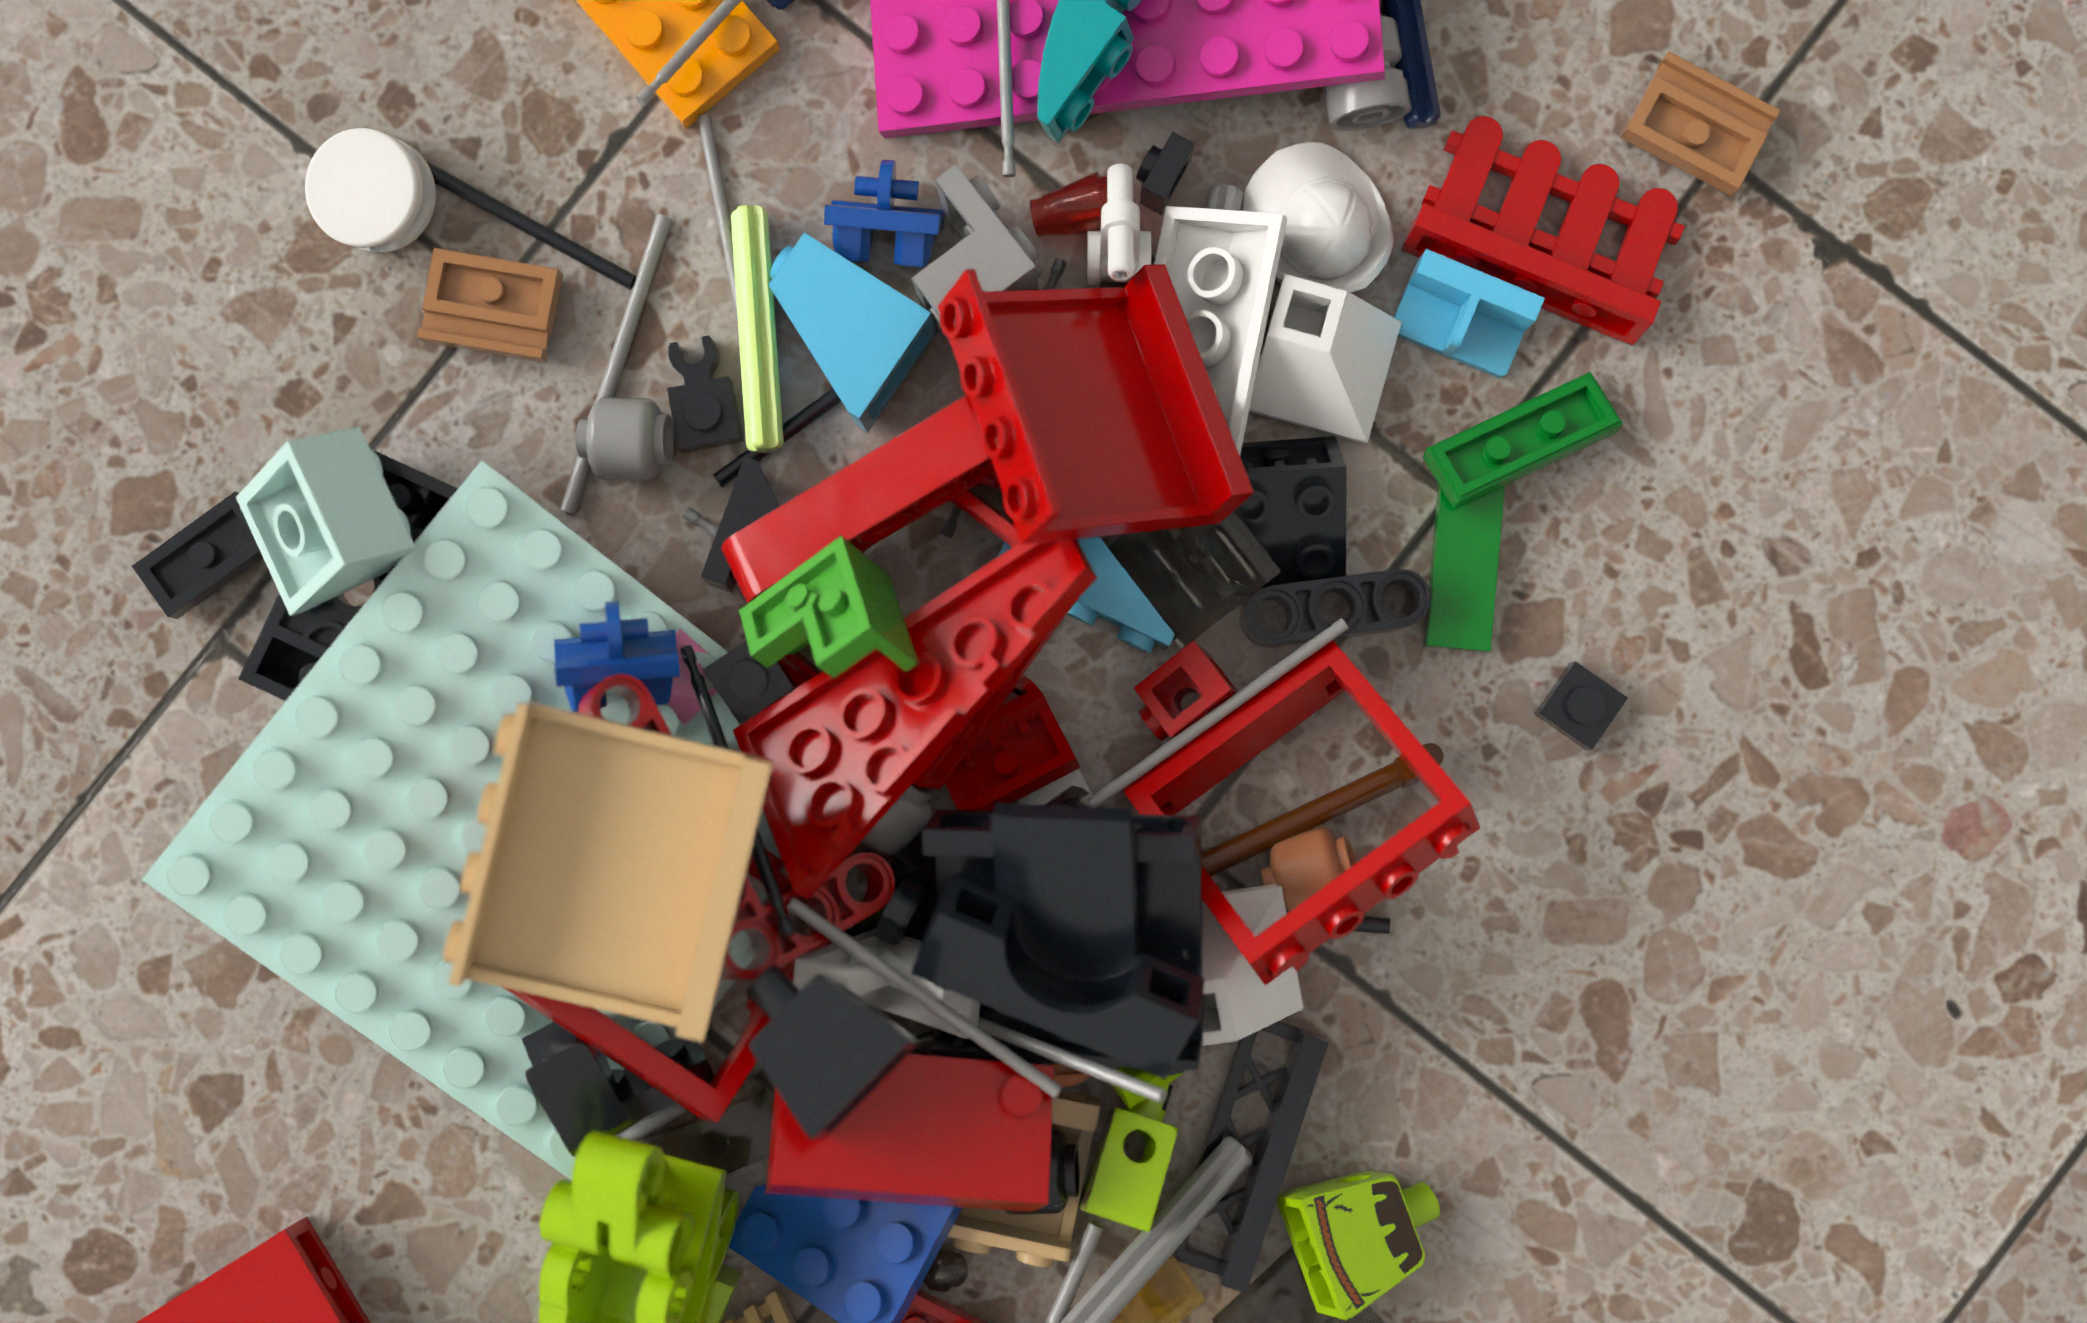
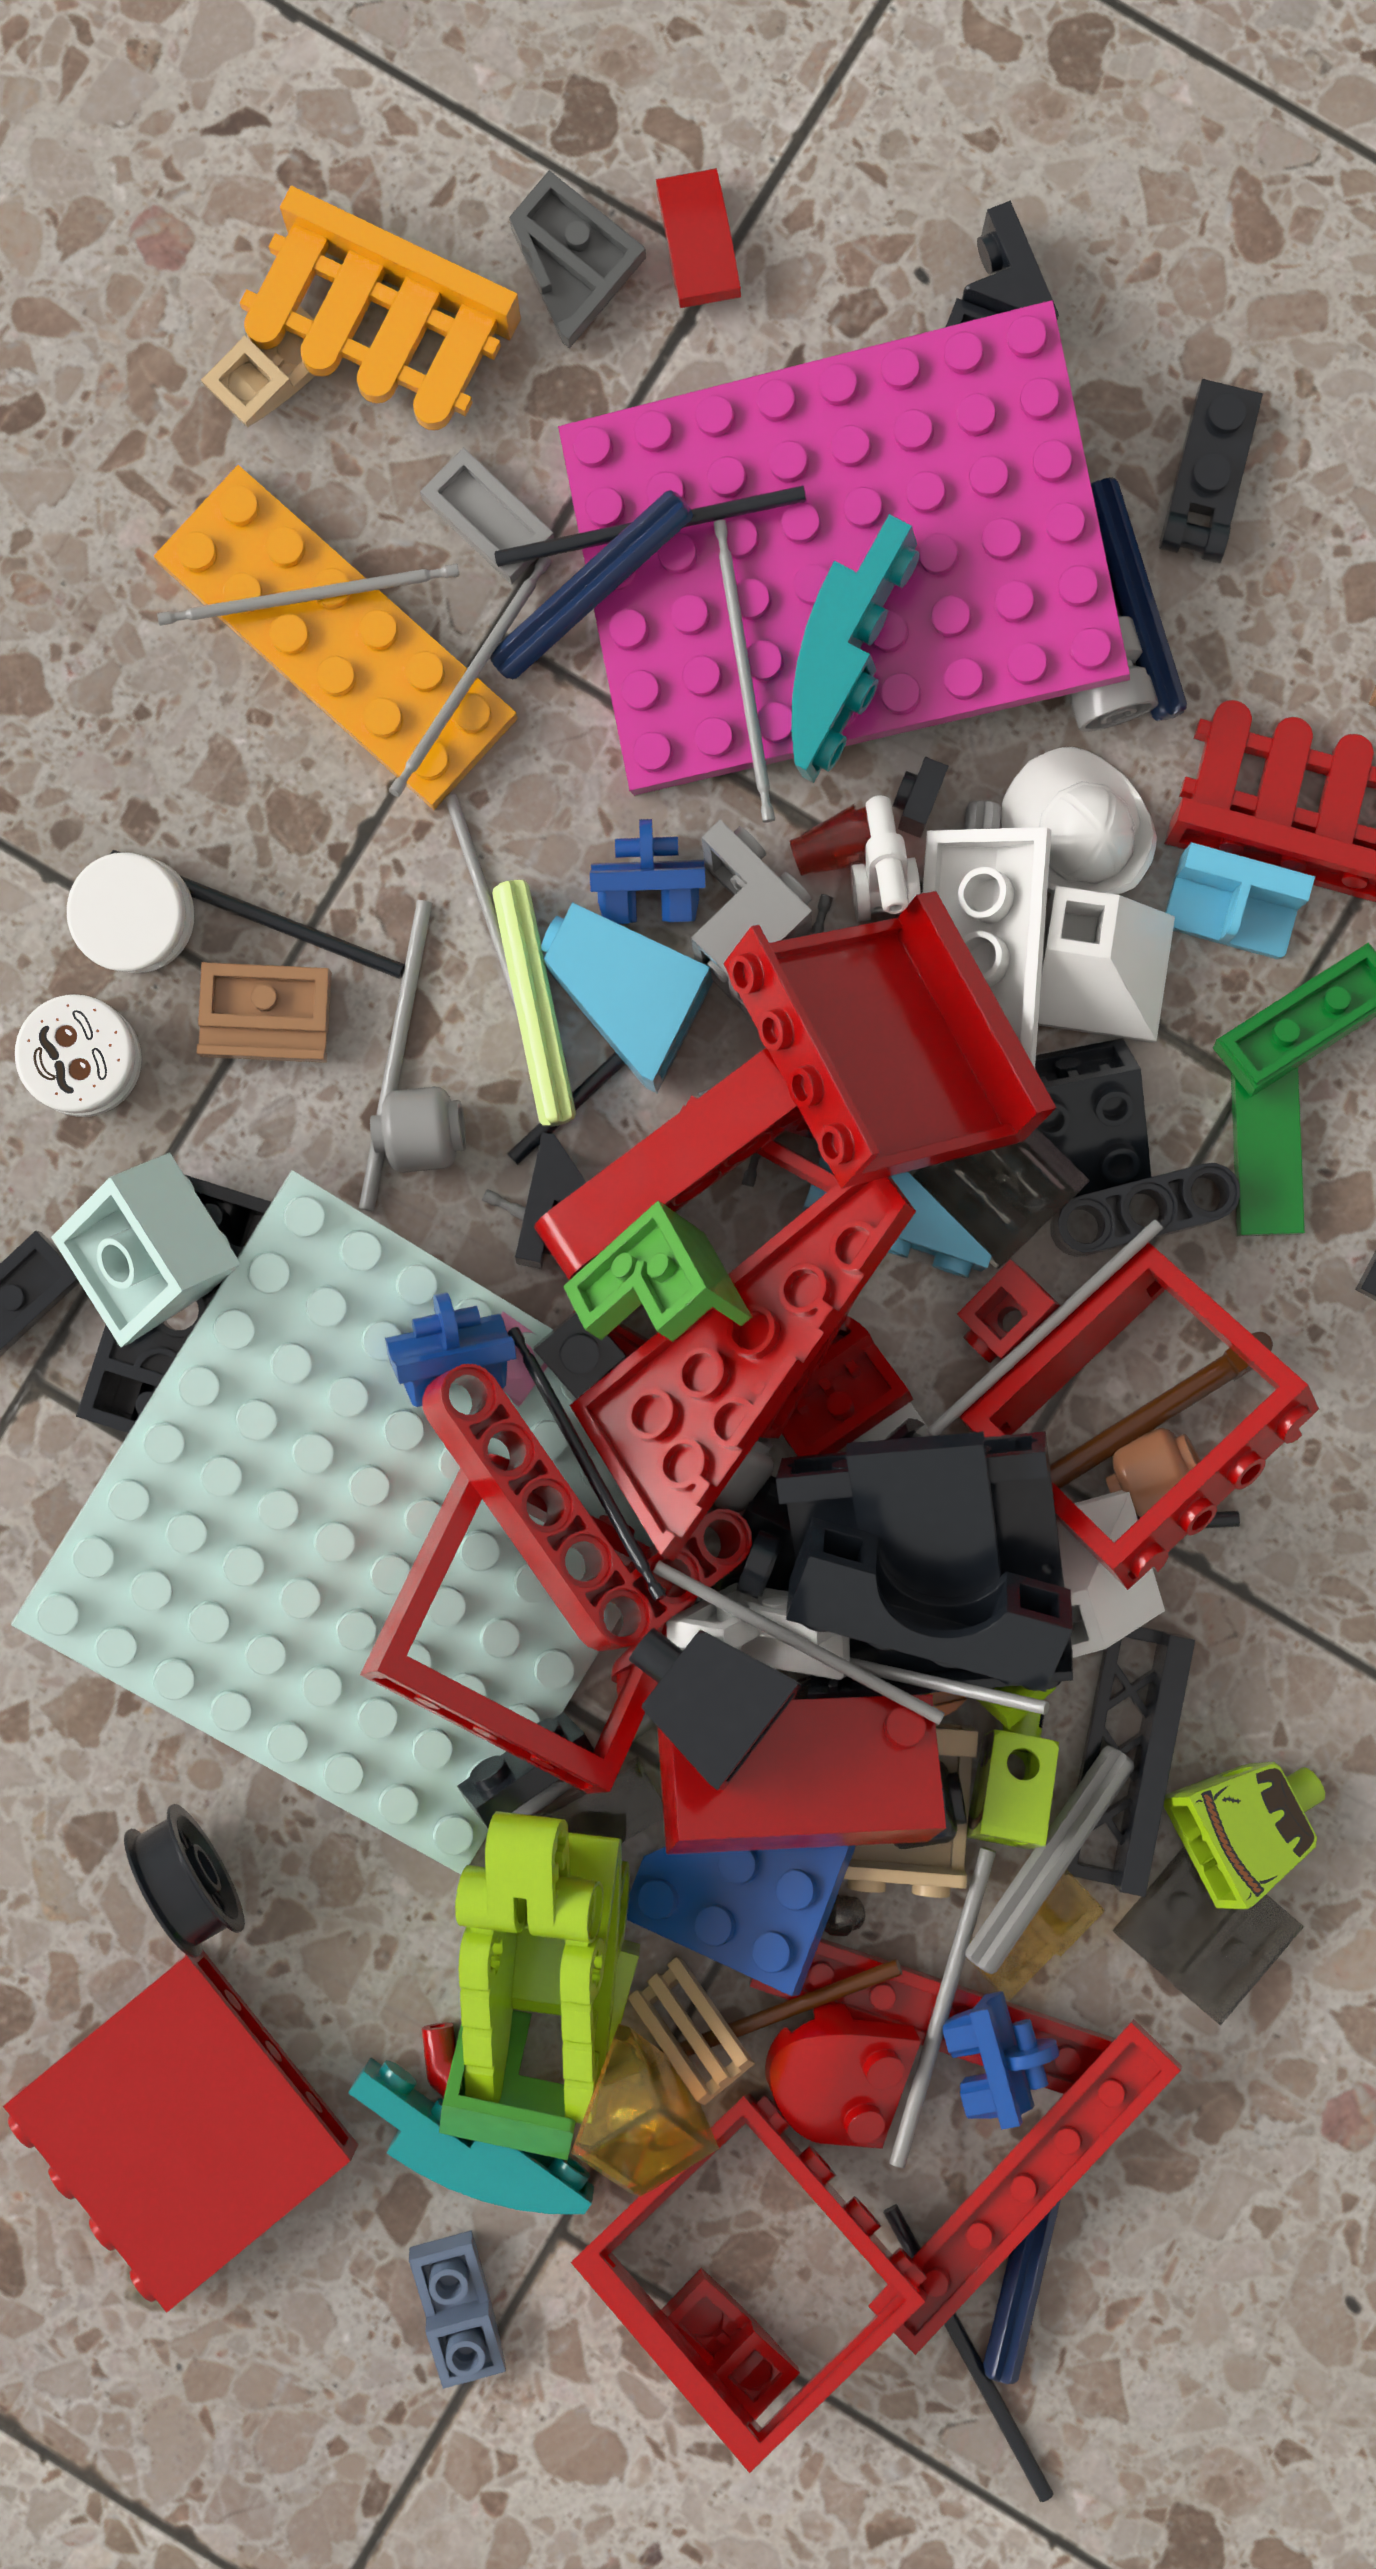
camera: 10 degrees left, 0 degrees up
(290, 1155) = (183, 1881): none -> black wheel
(301, 325) = (78, 1055): none -> white head
(574, 1086) = (460, 1774): black slope -> none
(609, 866) = (485, 1552): tan panel -> none
(704, 407) = (490, 1086): black plate -> none

